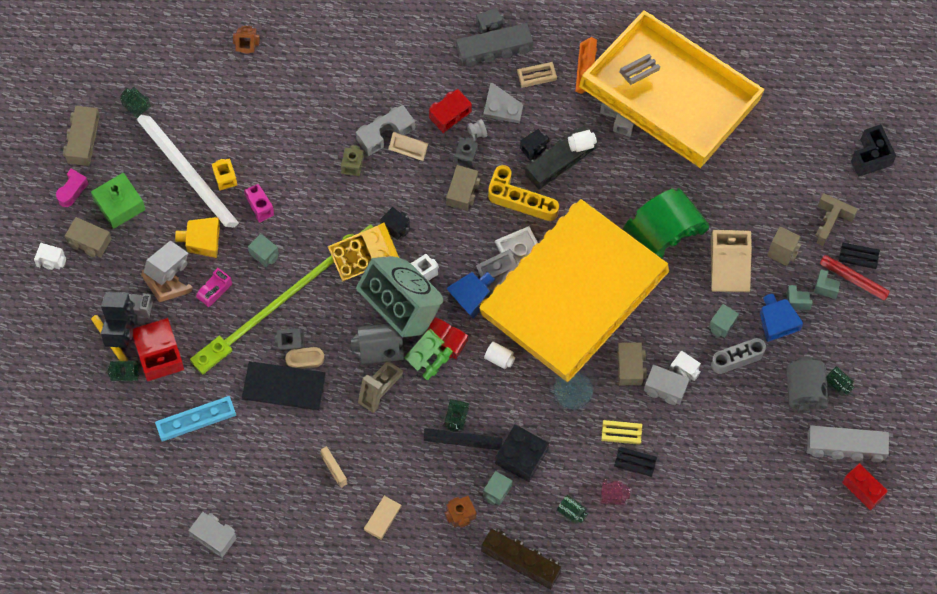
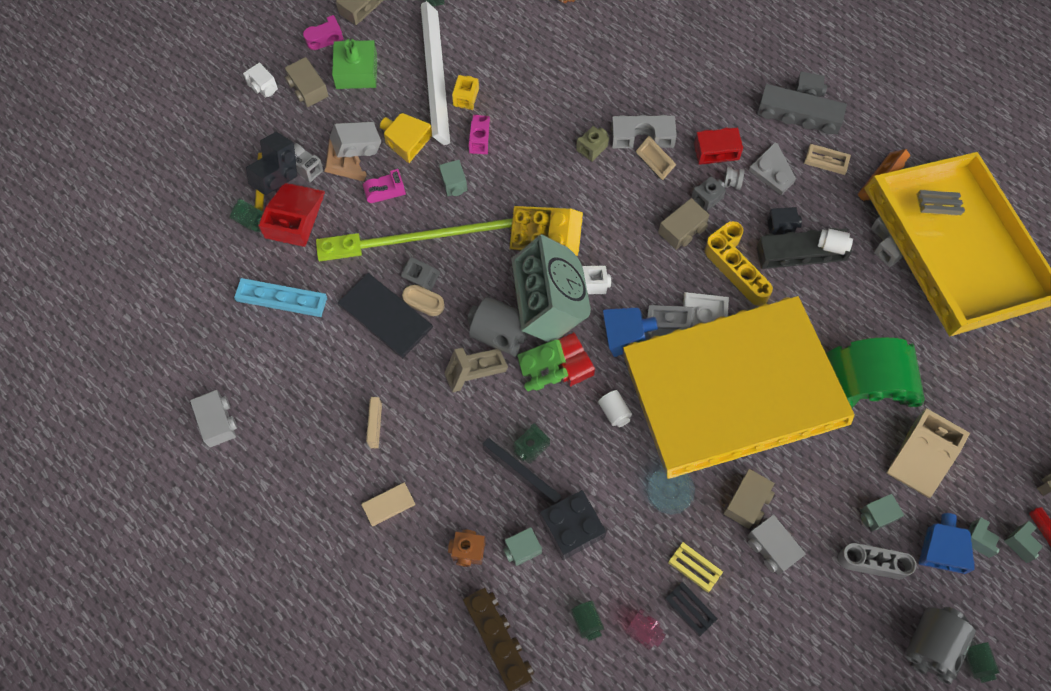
camera: 35 degrees right, 0 degrees up
(396, 223) = (596, 221): black brick -> none
(685, 366) = (809, 538): white brick -> none
(784, 246) = (999, 471): dark tan brick -> none

